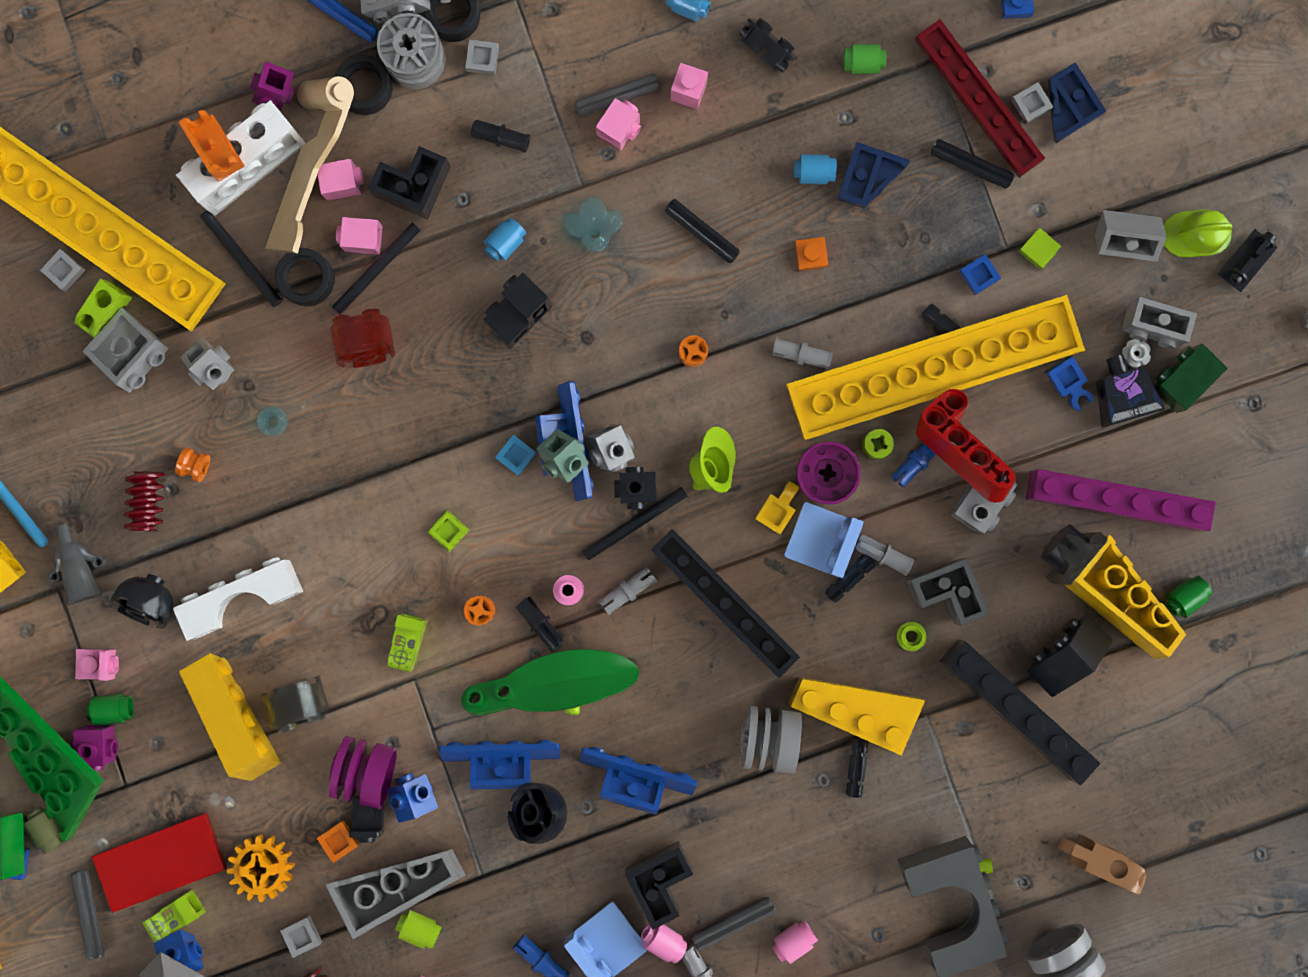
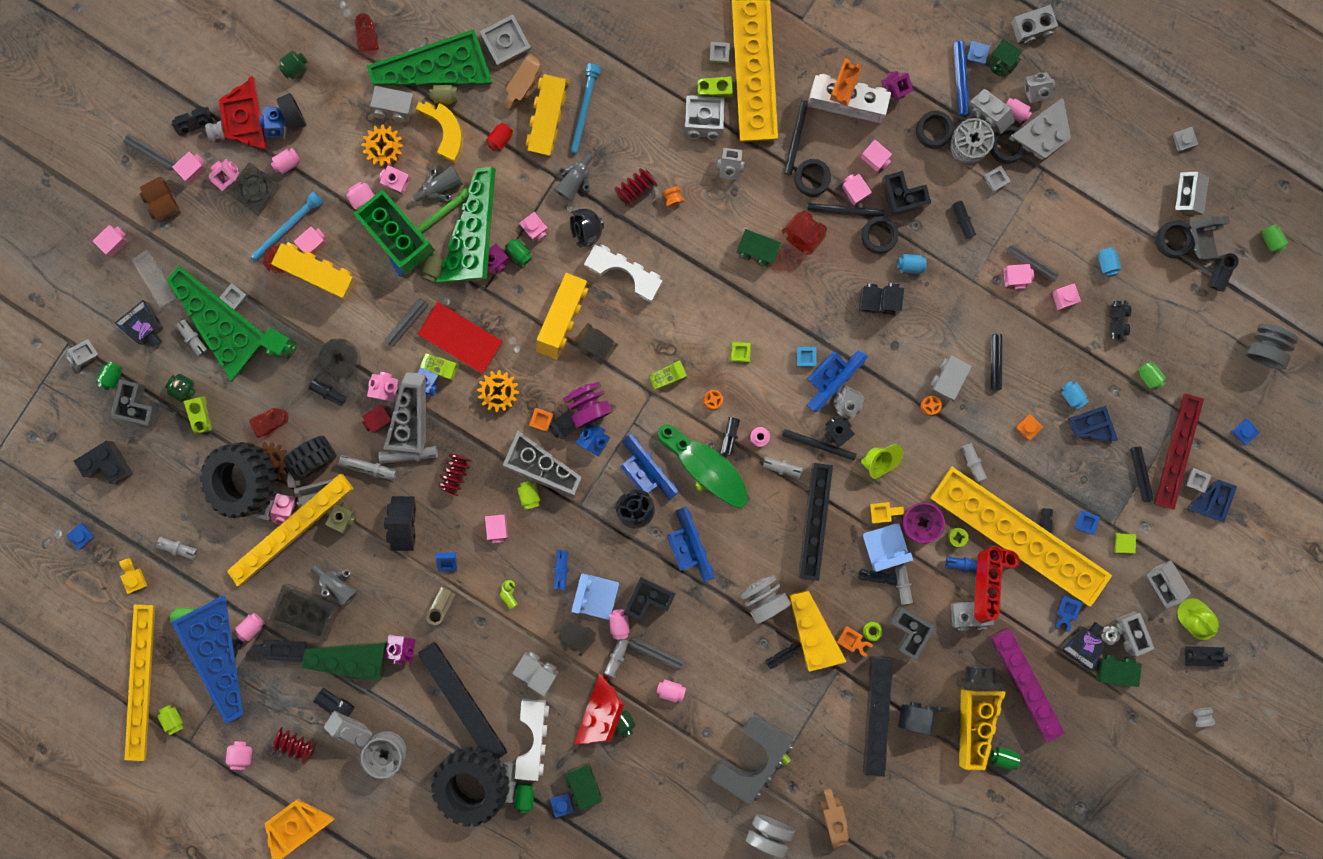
camera: 55 degrees right, 0 degrees up
(263, 421) = (728, 213): clear light blue plate -> none
(301, 936) = (479, 438): light grey plate -> none
(334, 97) = (916, 123): tan door -> none
(337, 410) = (758, 248): none -> dark green brick
(423, 234) = (880, 249): none -> black tyre
(562, 456) = (826, 380): sand green brick -> none
(593, 220) = (957, 301): clear light blue plate -> none
(678, 300) = (950, 378): none -> light grey brick
(902, 671) = (851, 640): none -> orange plate

